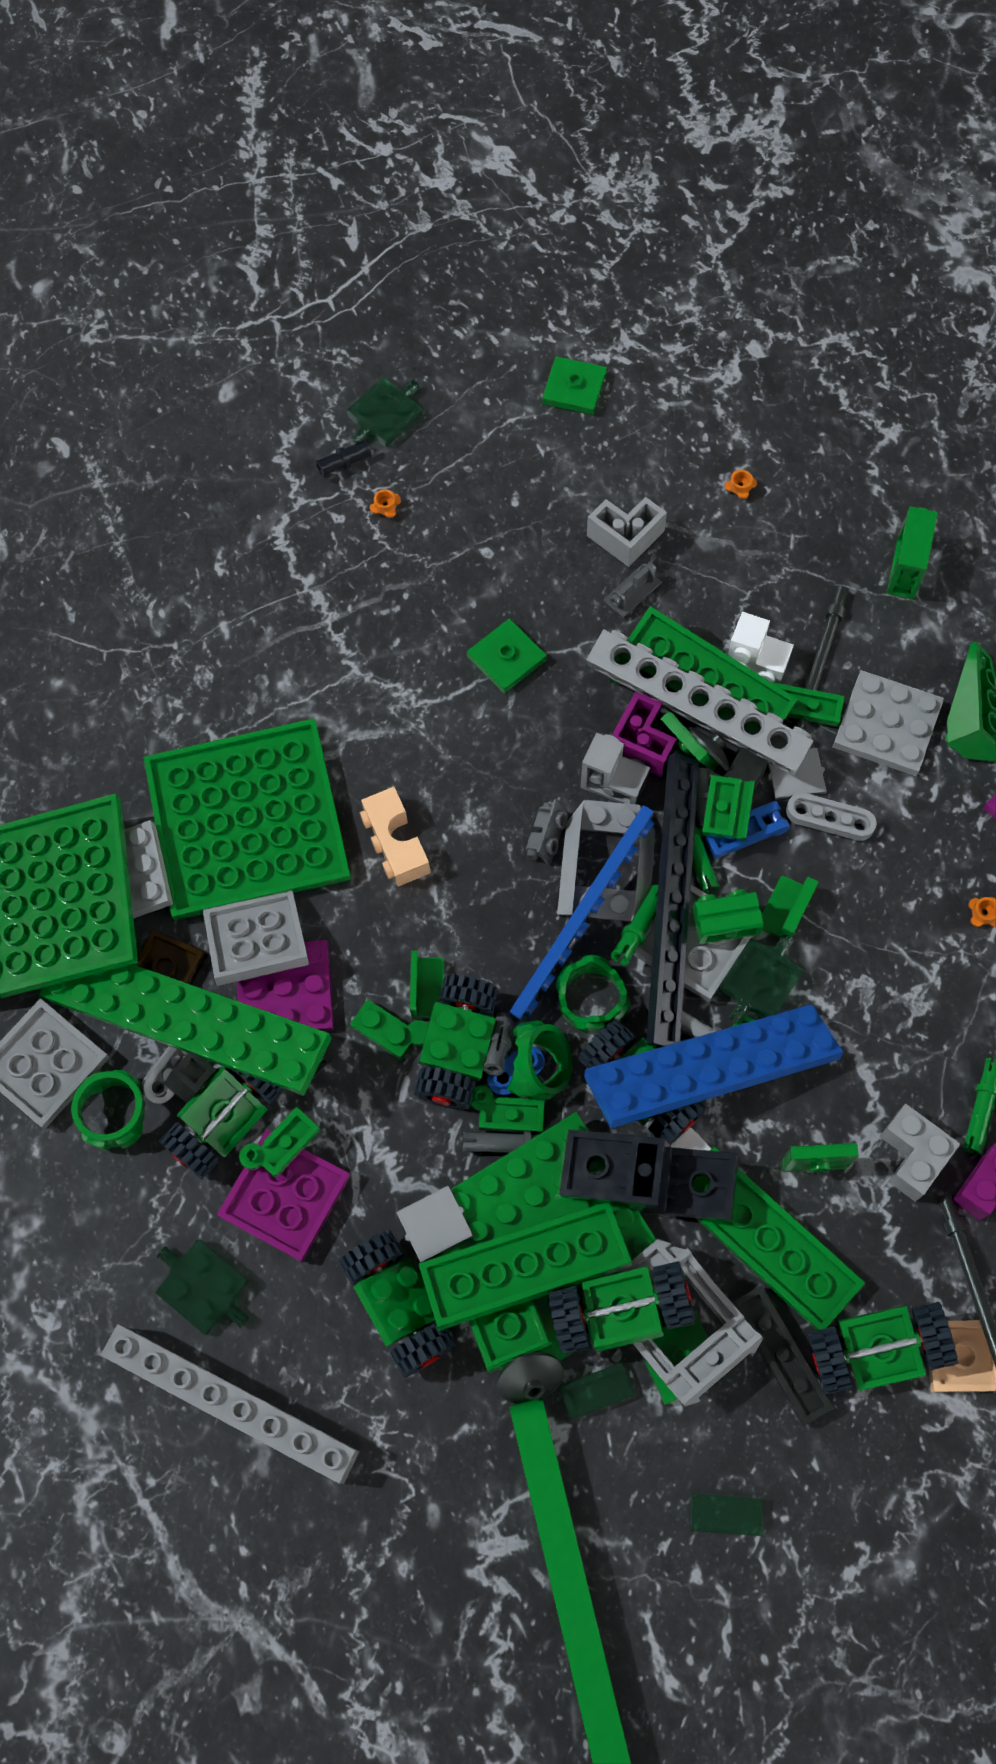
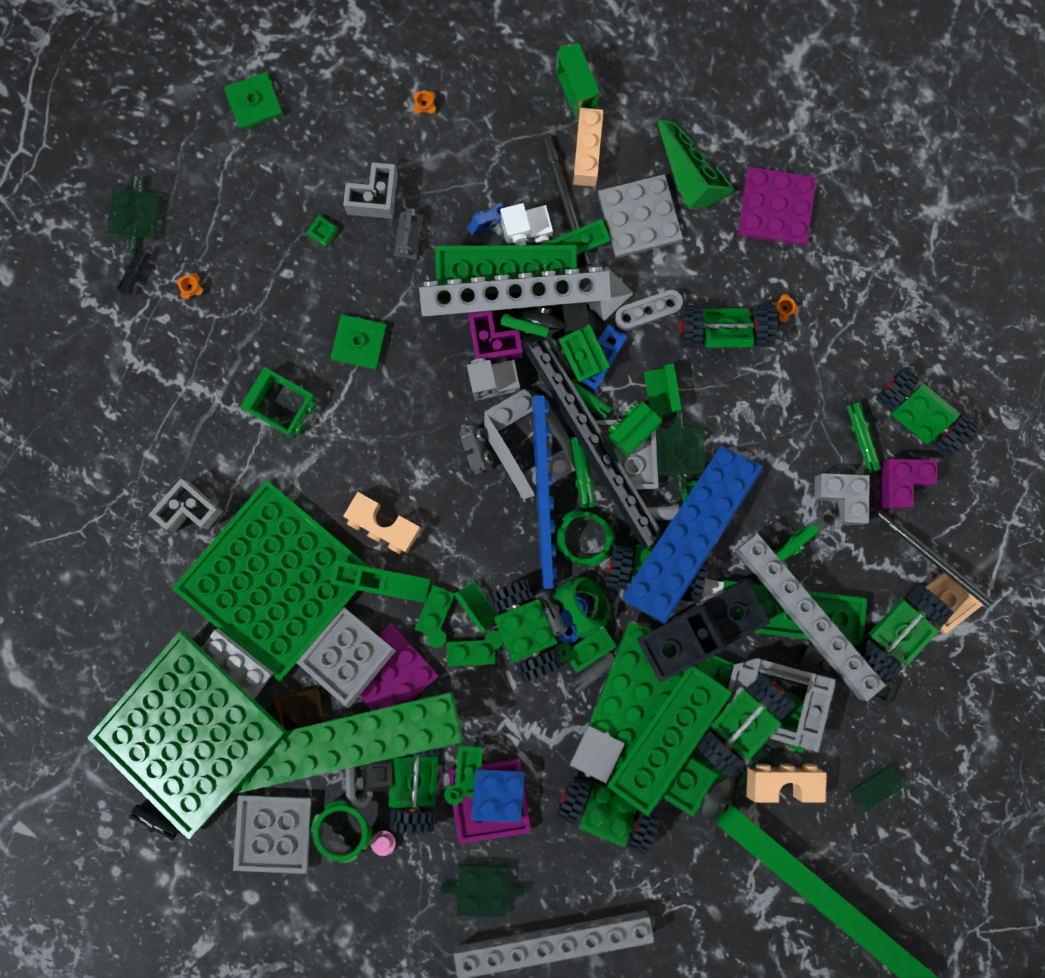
camera: 40 degrees left, 15 degrees up
(141, 1157) = (383, 843): none -> bright pink plate
(218, 685) = (185, 502): none -> light grey brick
(296, 1190) = (497, 795): none -> blue plate
(349, 889) = (380, 581): none -> green slope
(376, 634) = (259, 391): none -> green window
(377, 965) = (433, 616): none -> green hinge
(550, 535) = (322, 231): none -> green tile
(648, 1439) = (765, 782): none -> light nougat arch
(717, 622) = (484, 220): none -> blue plate
(781, 1252) = (810, 618): none -> light grey brick
(871, 627) = (588, 147): none -> light nougat arch
(905, 885) = (728, 326): none -> plate

